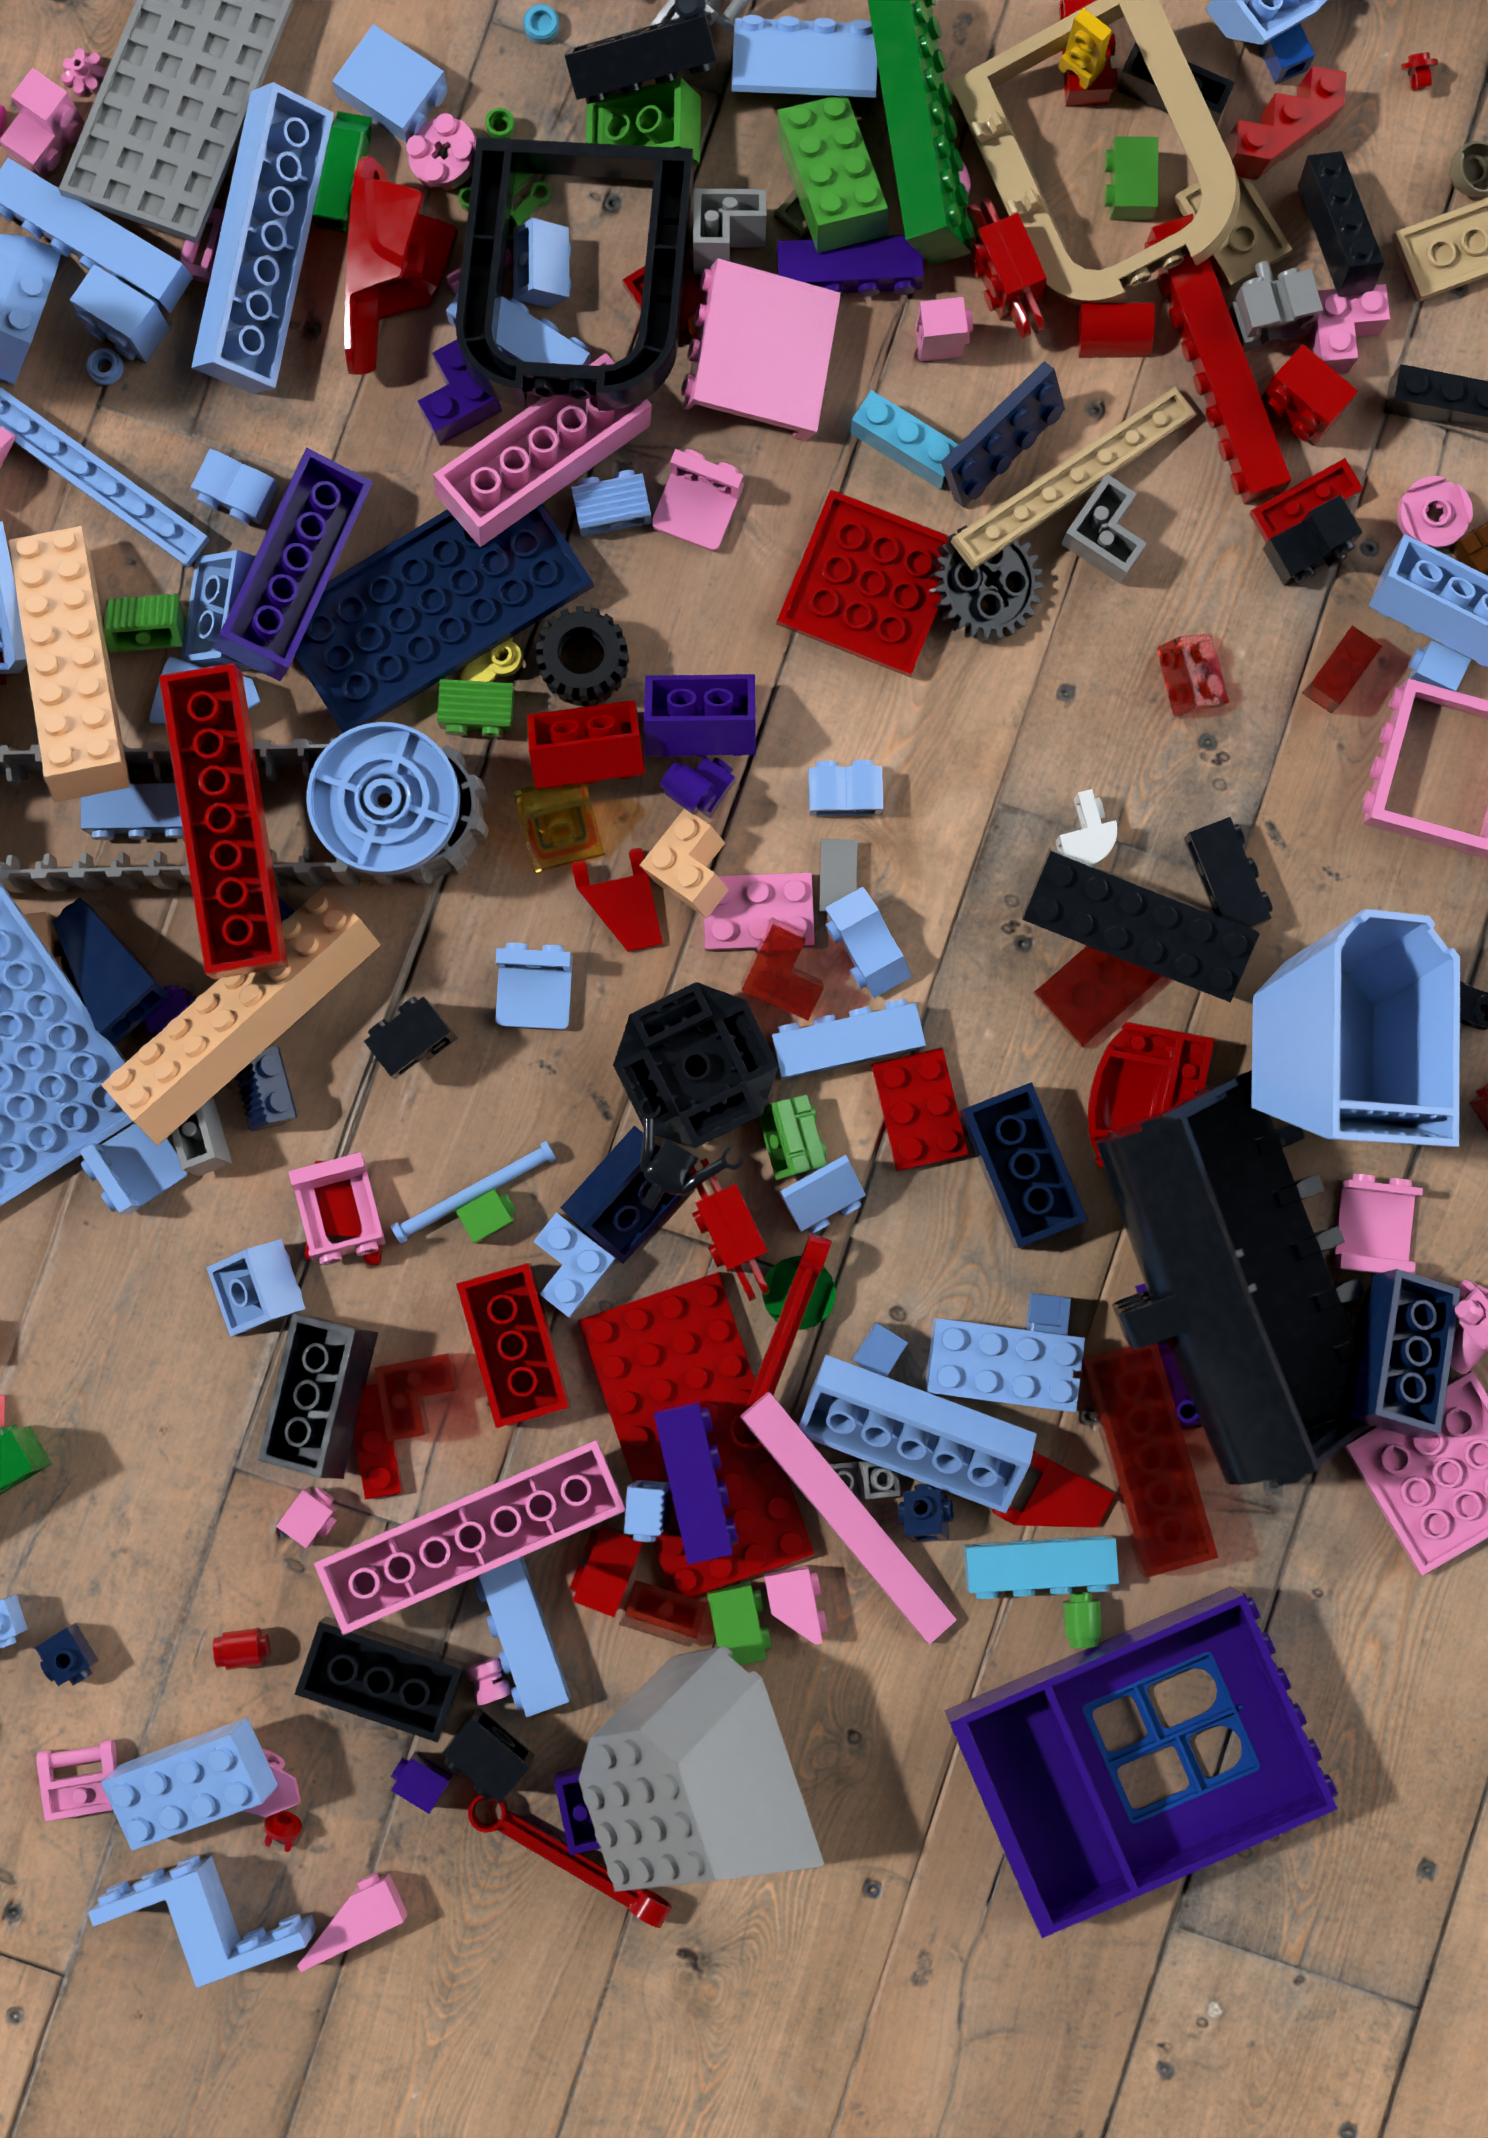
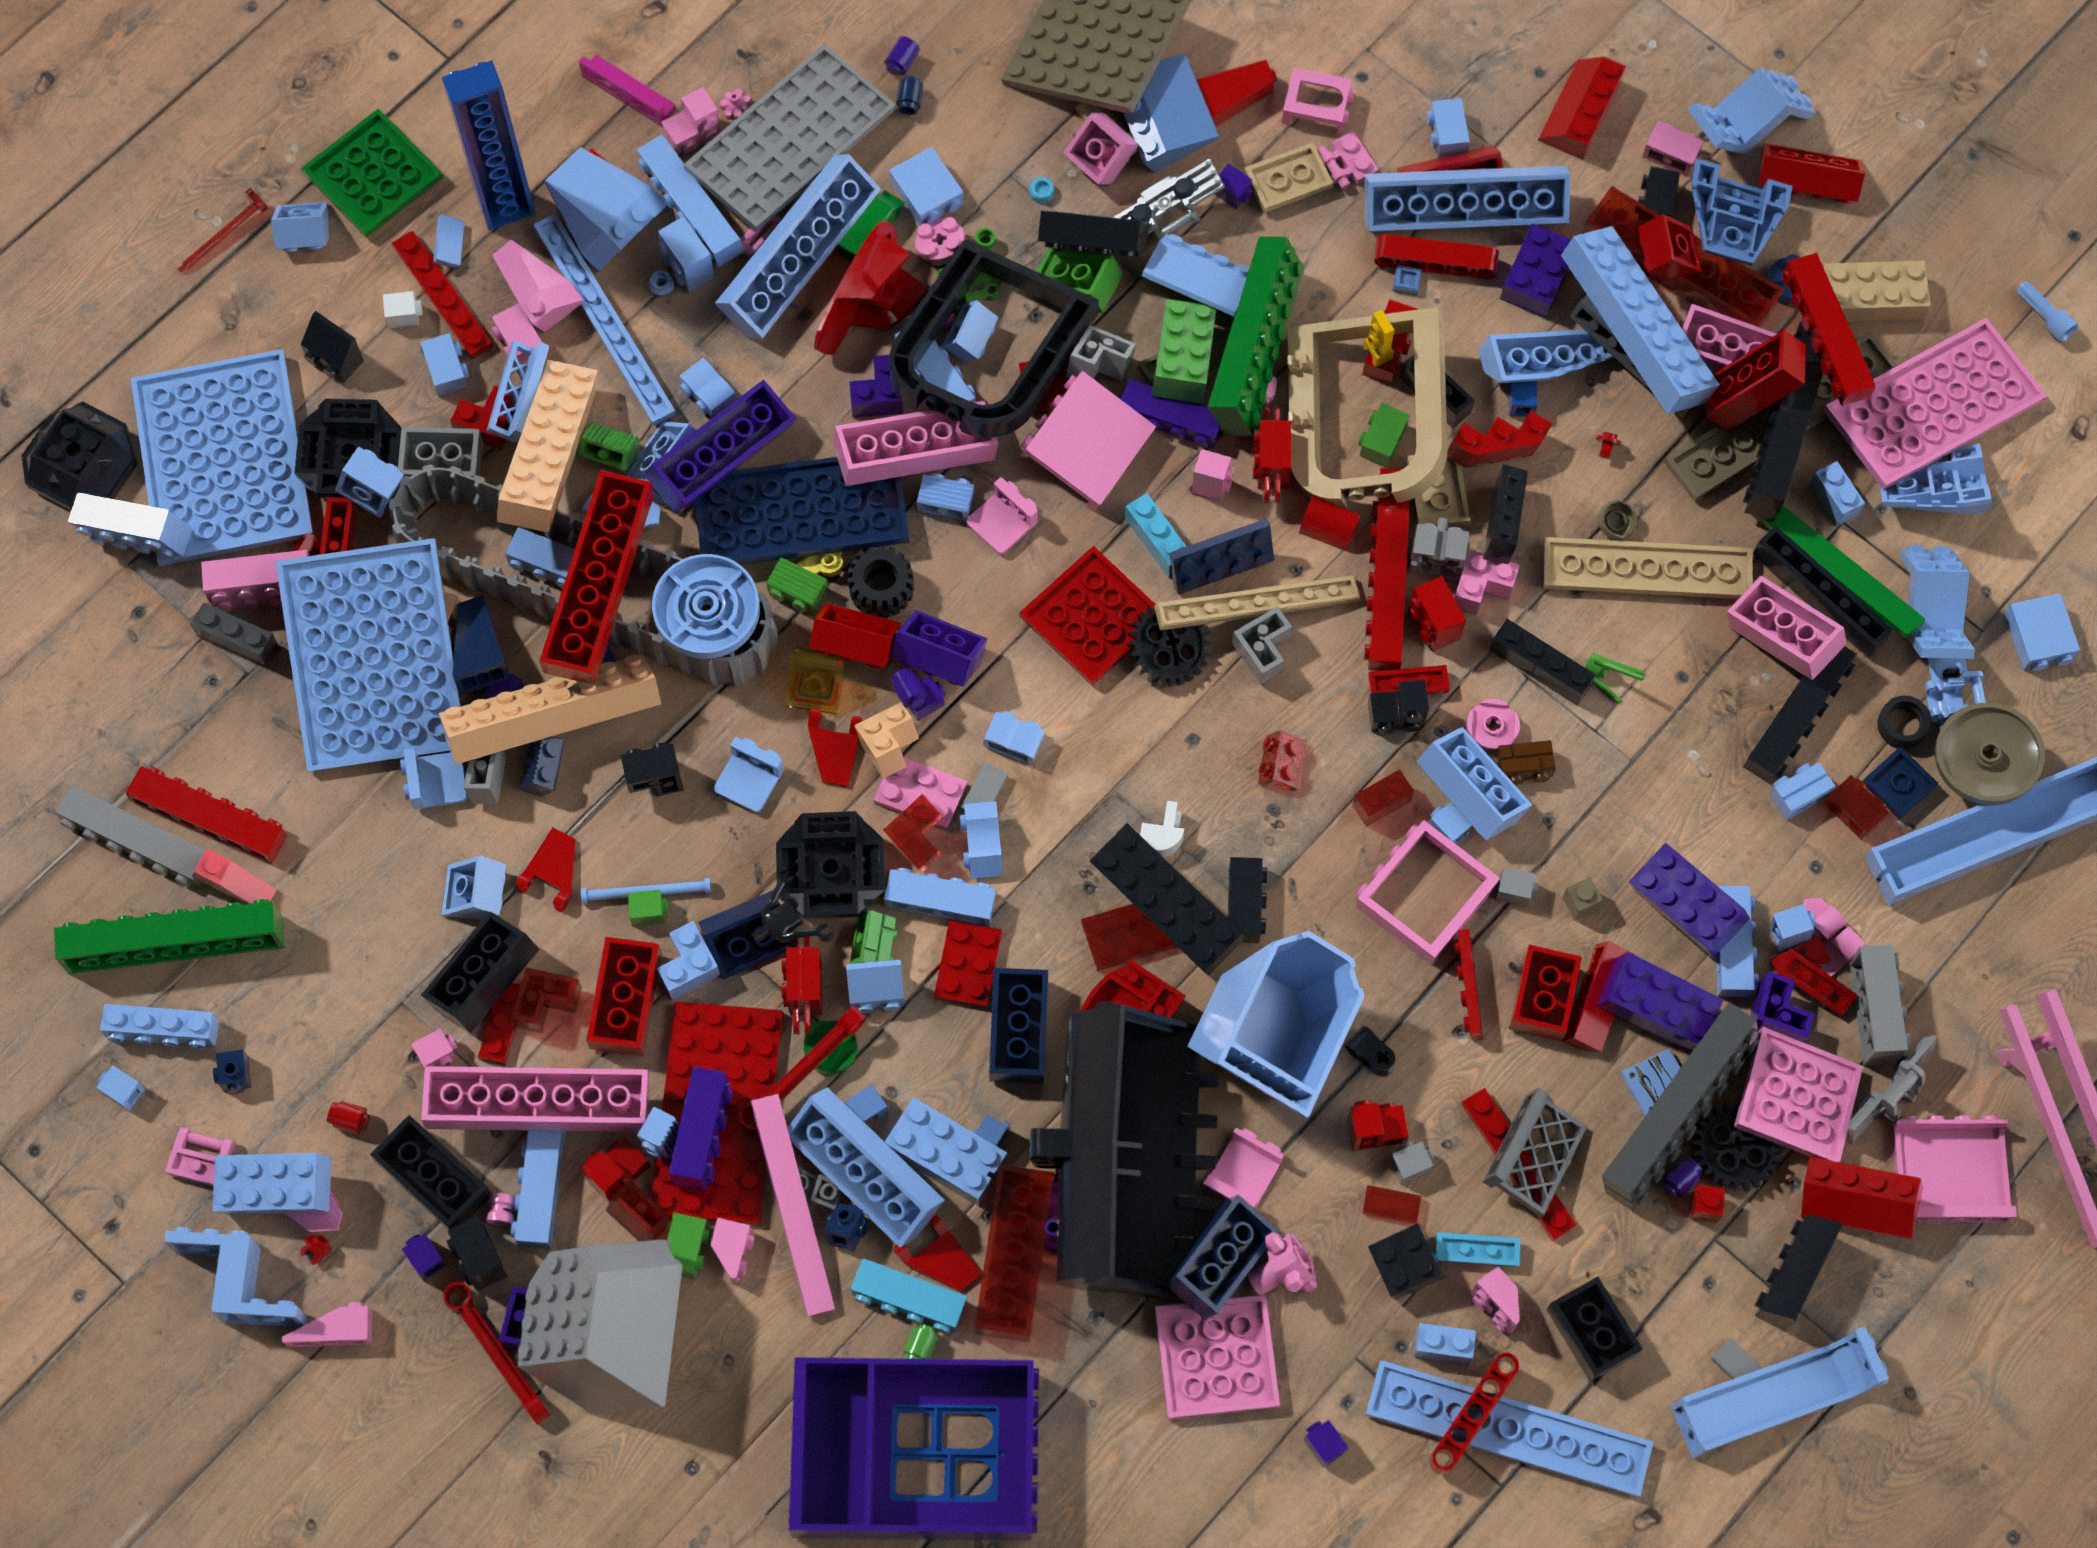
camera: 25 degrees right, 15 degrees down
(329, 1172) = (556, 835): bright pink panel -> none

